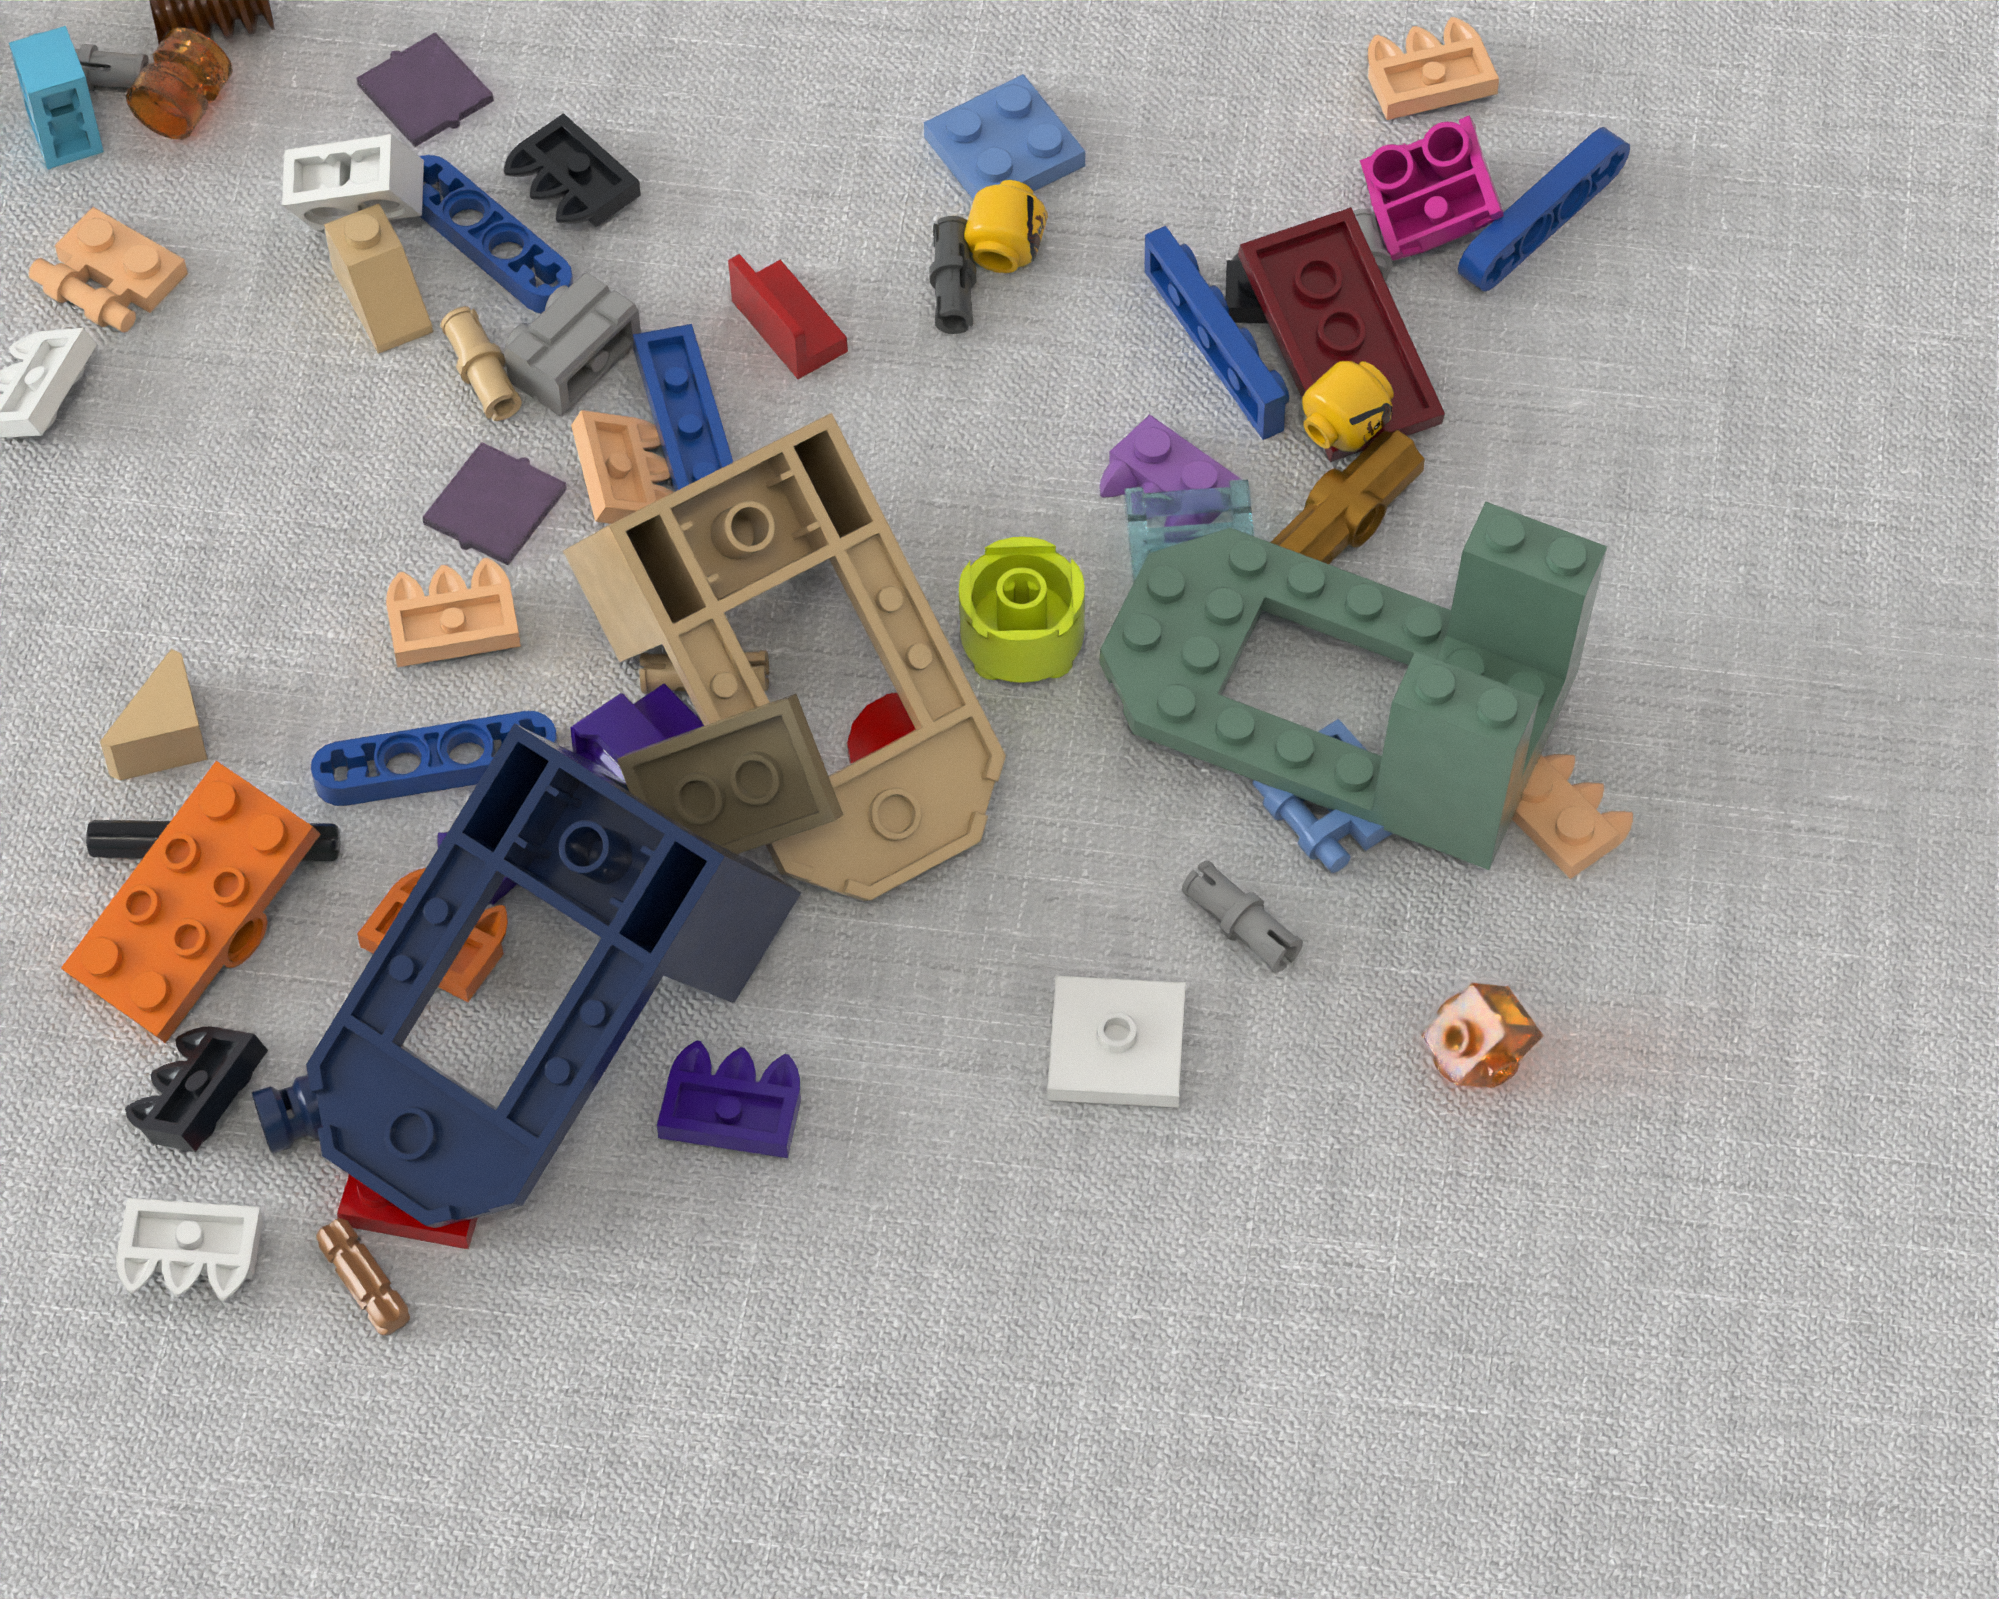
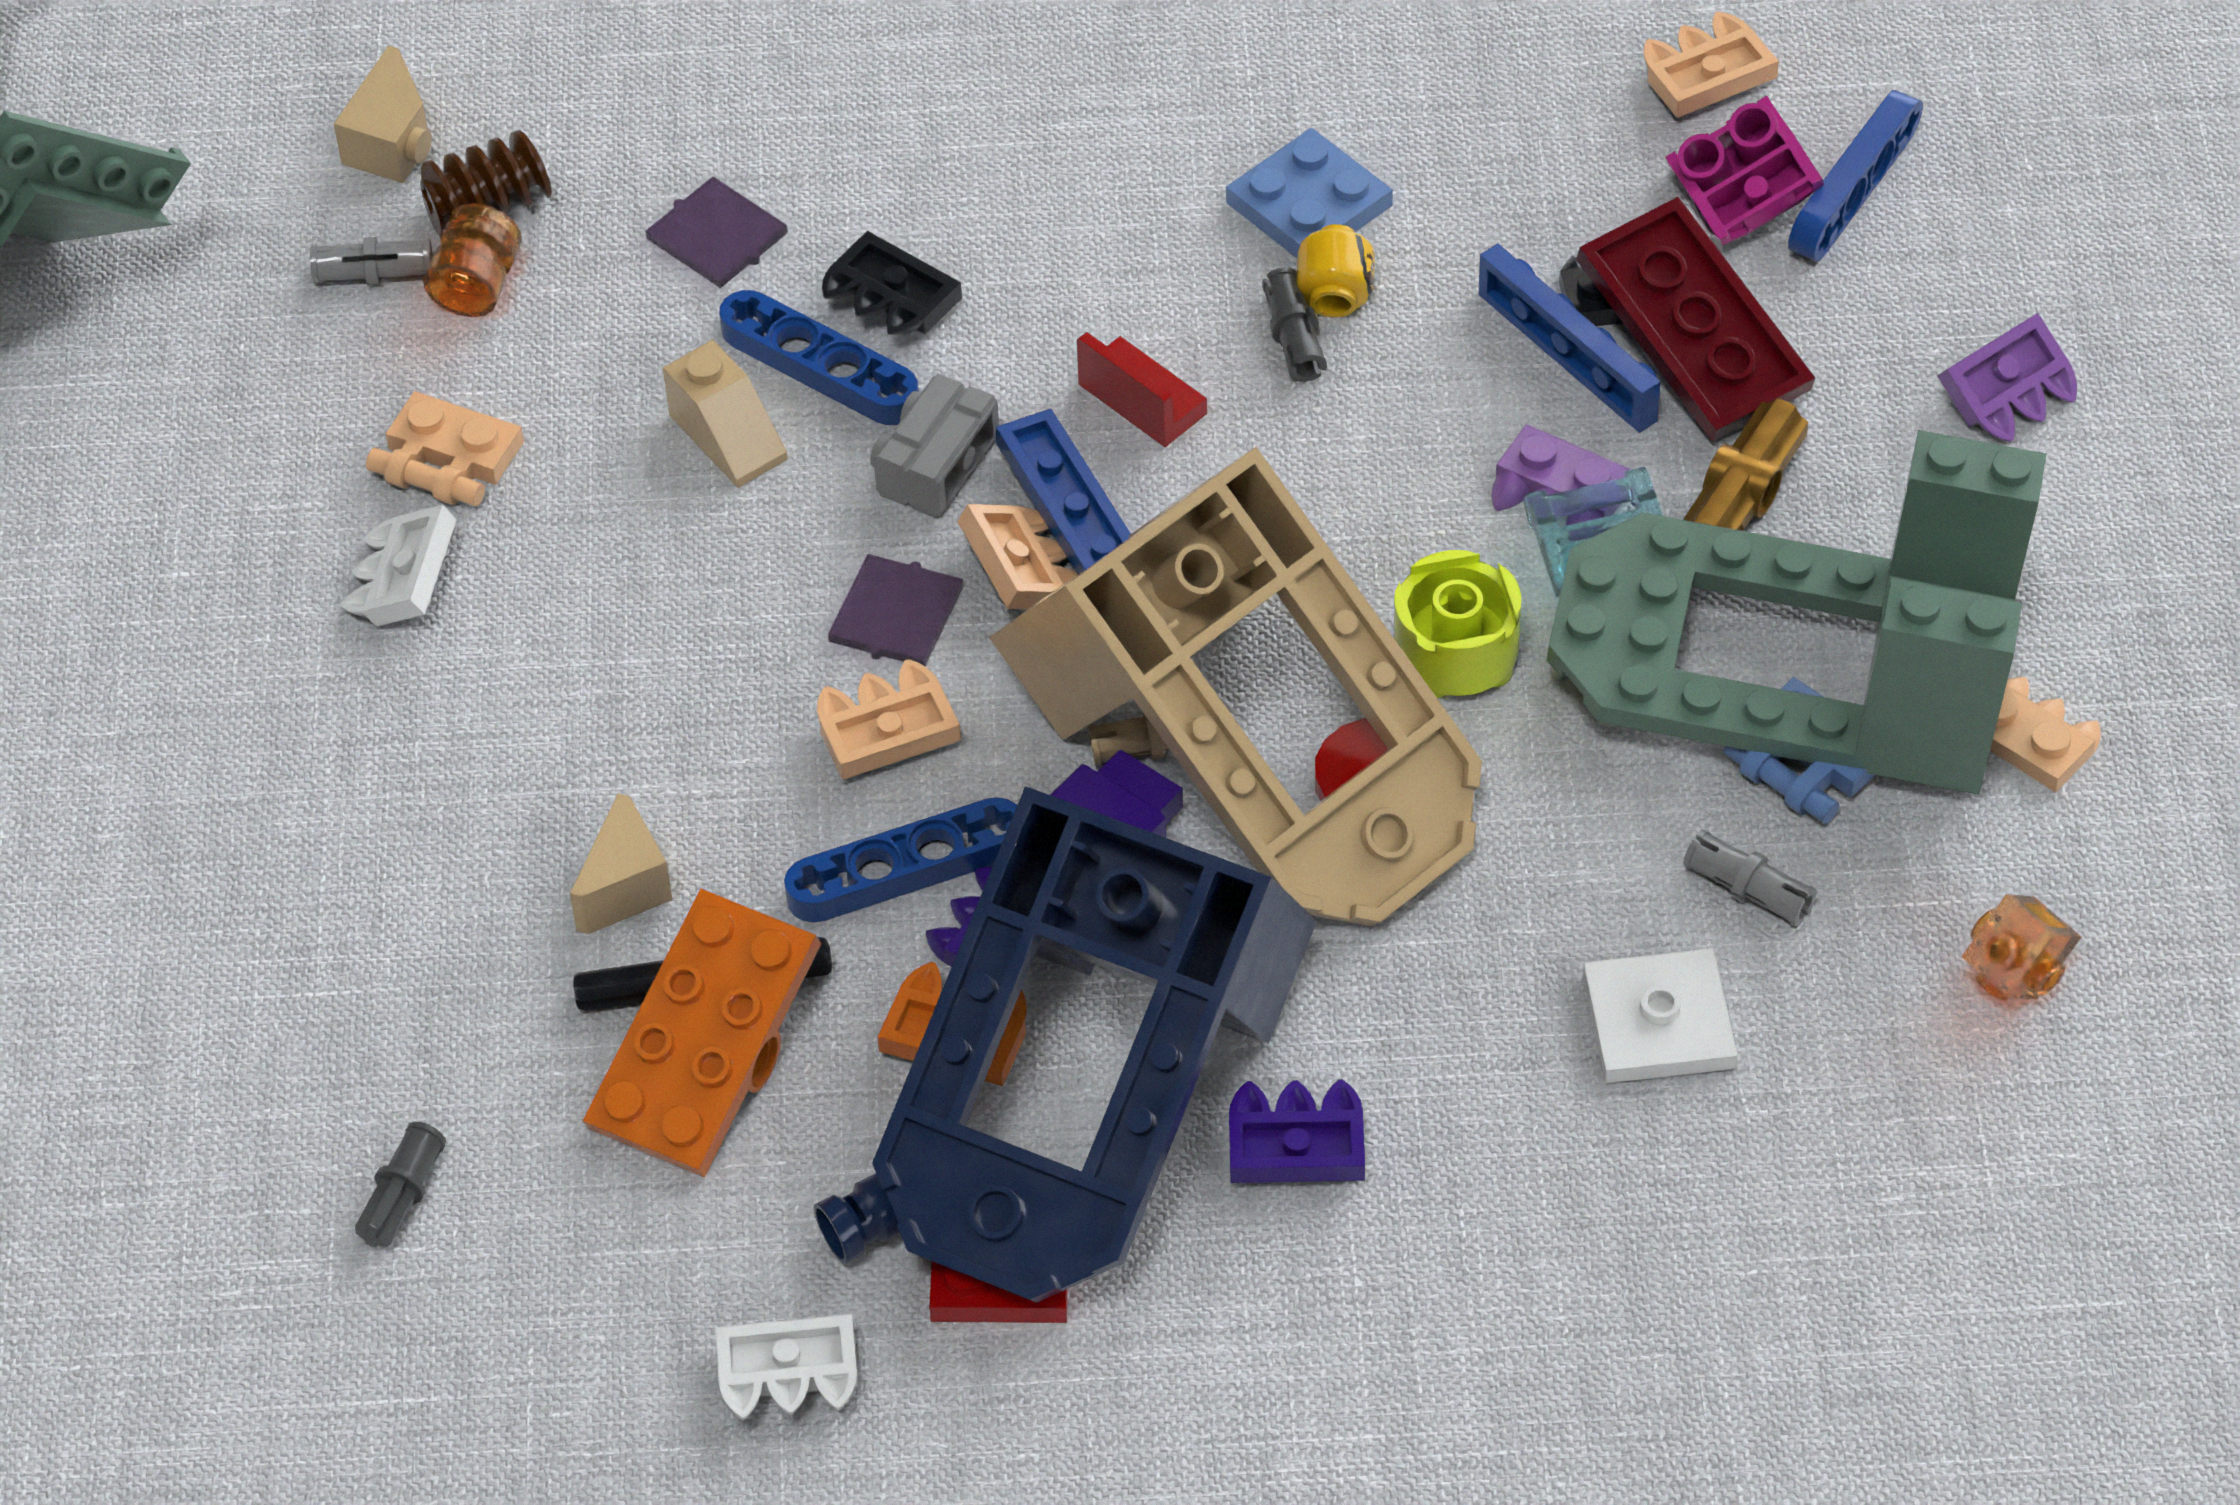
camera: 10 degrees left, 5 degrees down
(56, 97) = (355, 289): medium azure brick -> none
(196, 1089) = (756, 1213): black plate -> none
(350, 176) = (676, 318): white brick -> none
(363, 1276) = (971, 1365): medium nougat axle -> none
(481, 363) = (848, 479): tan pin -> none
(738, 777) = (1247, 807): dark tan plate -> none
(1347, 406) = (1724, 382): yellow head -> none
(1639, 440) = (2010, 373): none -> medium lavender plate

